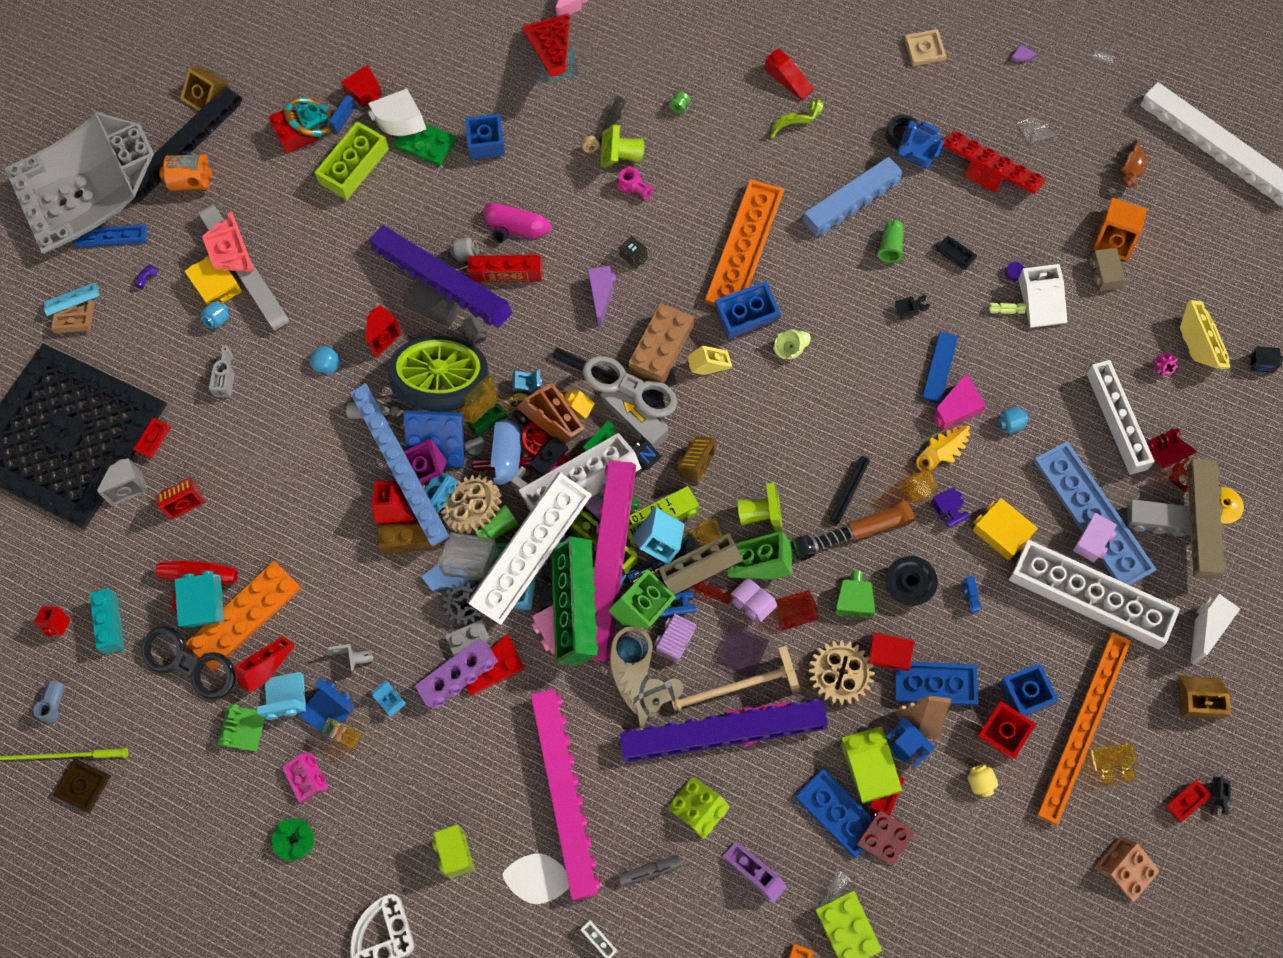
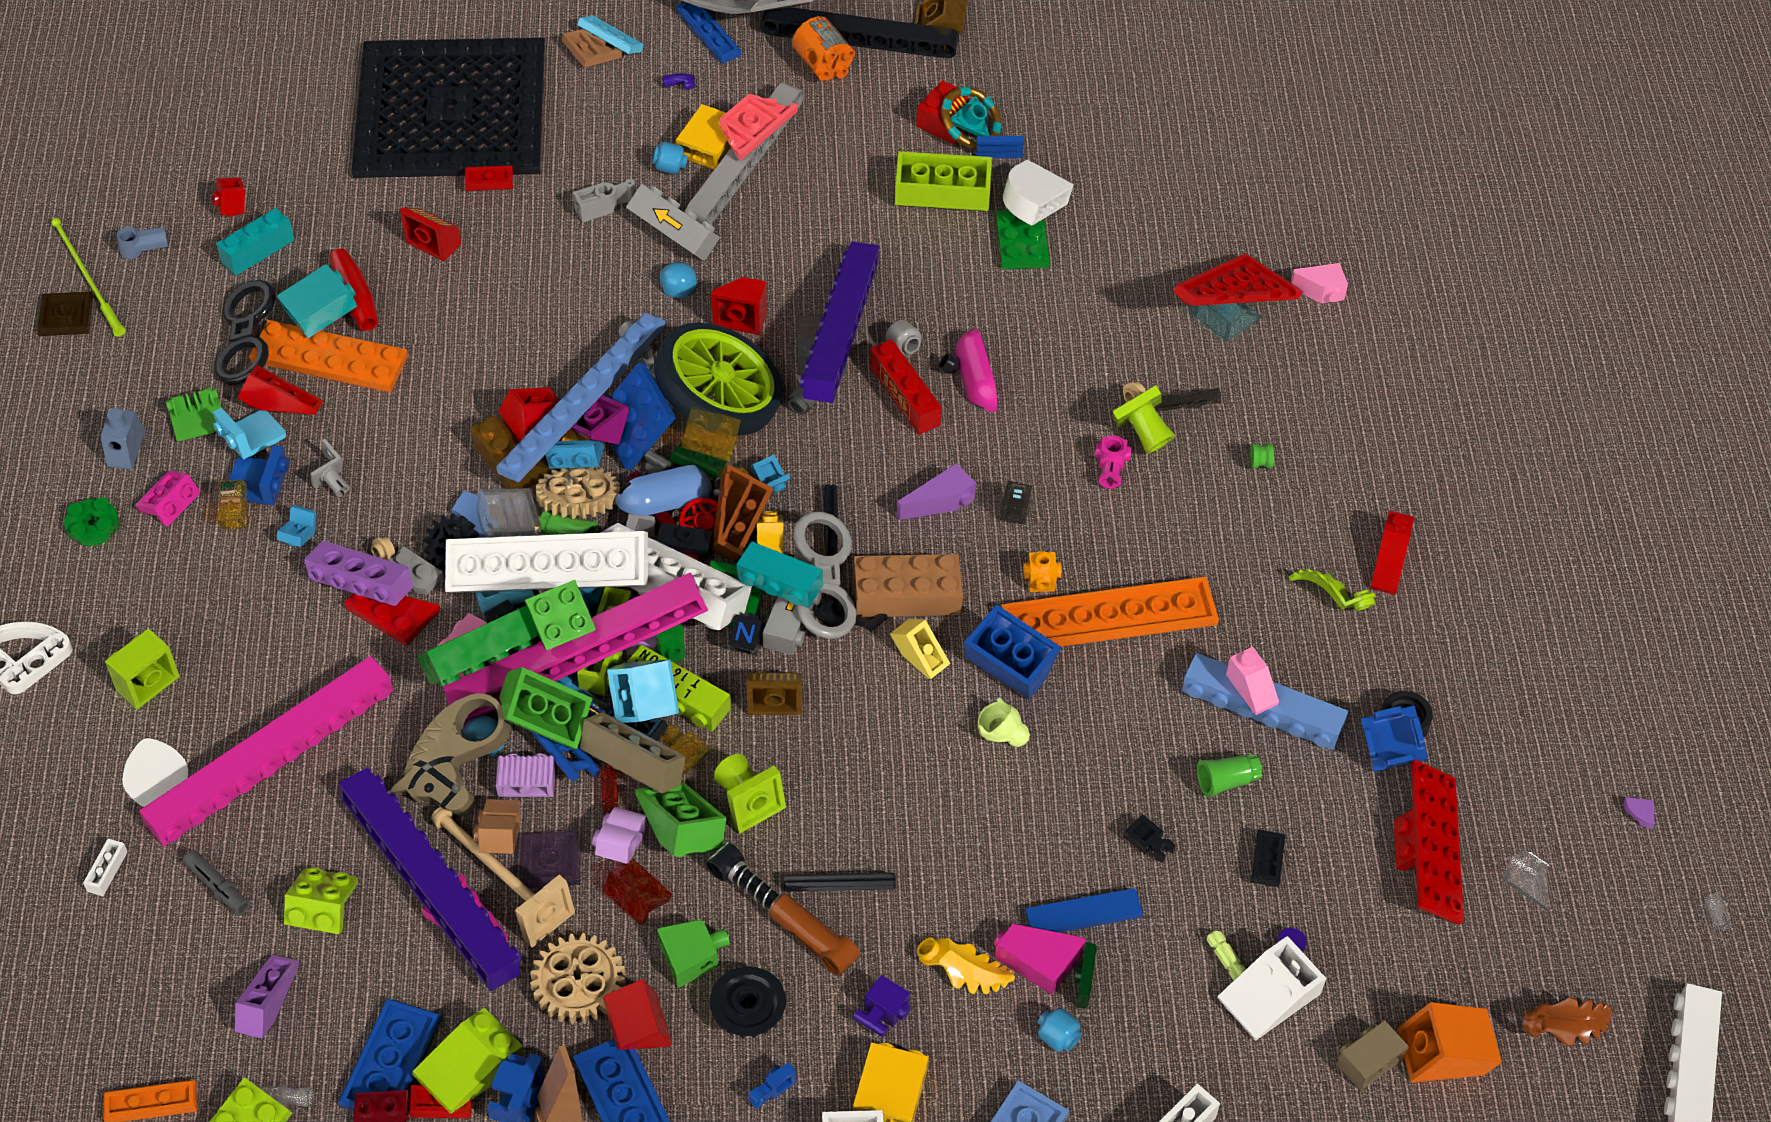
camera: 55 degrees right, 15 degrees down
(122, 482) = (418, 174): light grey slope -> none
(234, 787) = (122, 429): none -> sand blue torso
(275, 339) = (673, 222): none -> light grey brick
(362, 86) = (1051, 147): red torso -> none
(440, 650) = (382, 548): none -> tan plate
(485, 136) = (1065, 286): blue brick -> none
(593, 555) = (560, 615): none -> bright green hinge
(624, 411) = (780, 575): none -> teal brick
(694, 264) = (1042, 571): none -> light orange brick
(714, 672) = (498, 826): none -> medium nougat piece
(846, 192) = (1252, 680): none -> bright pink slope
(919, 485) = (888, 952): clear yellow cone -> none
(925, 47) = (1559, 690): tan tile -> none
(986, 388) = (1084, 975): none -> dark green plate

